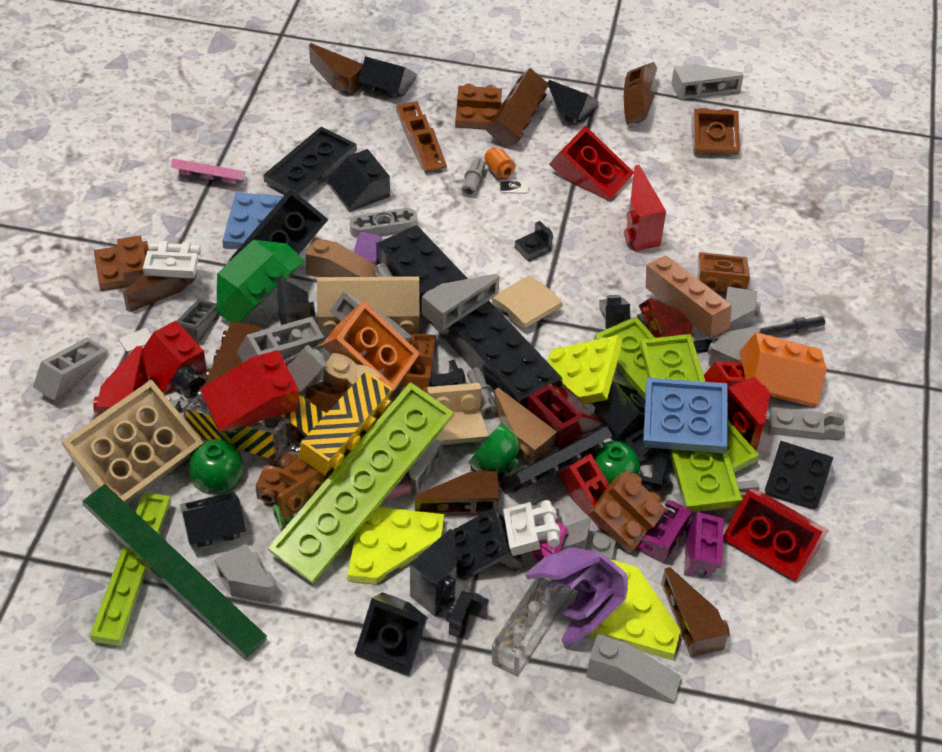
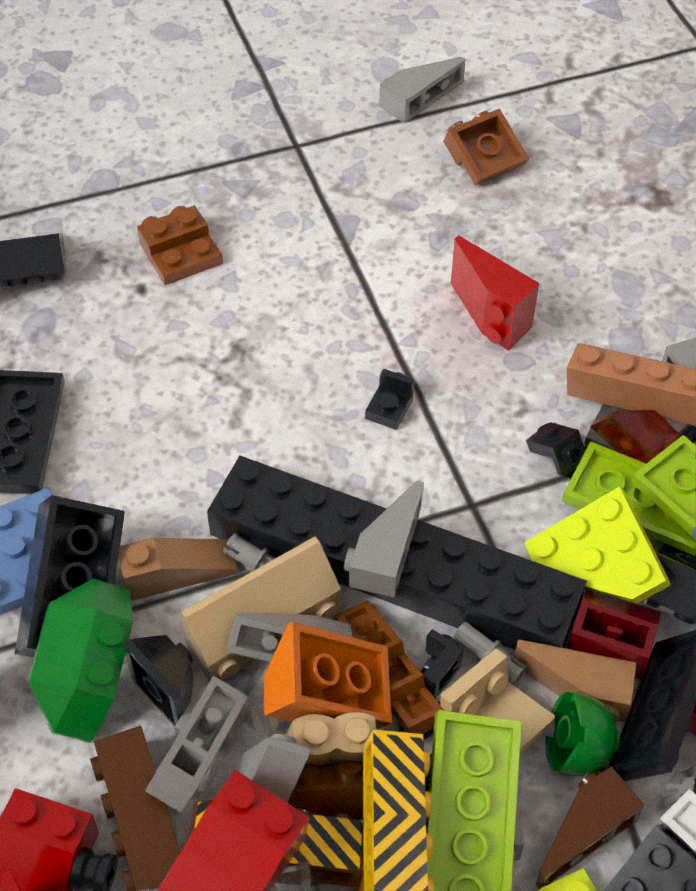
camera: 30 degrees left, 5 degrees up
(197, 322) = (37, 782): dark grey slope -> none
(360, 181) = (106, 425): black slope -> none
(366, 246) = (187, 518): medium lavender slope -> none
(390, 216) = (174, 485): light grey beam -> none
(421, 136) = (136, 321): dark orange slope -> none
(473, 177) = (245, 346): light grey axle -> none
(499, 162) = (264, 310): orange brick -> none
(514, 186) = (300, 333): sticker -> none
(518, 108) = (234, 223): reddish brown brick -> none
(527, 301) = (450, 488): tan slope -> none
(572, 102) = (292, 185): black slope -> none
(591, 165) = (378, 259): red slope -> none
(638, 93) = (362, 136): reddish brown slope -> none
(723, 271) = (638, 327): dark orange plate -> none

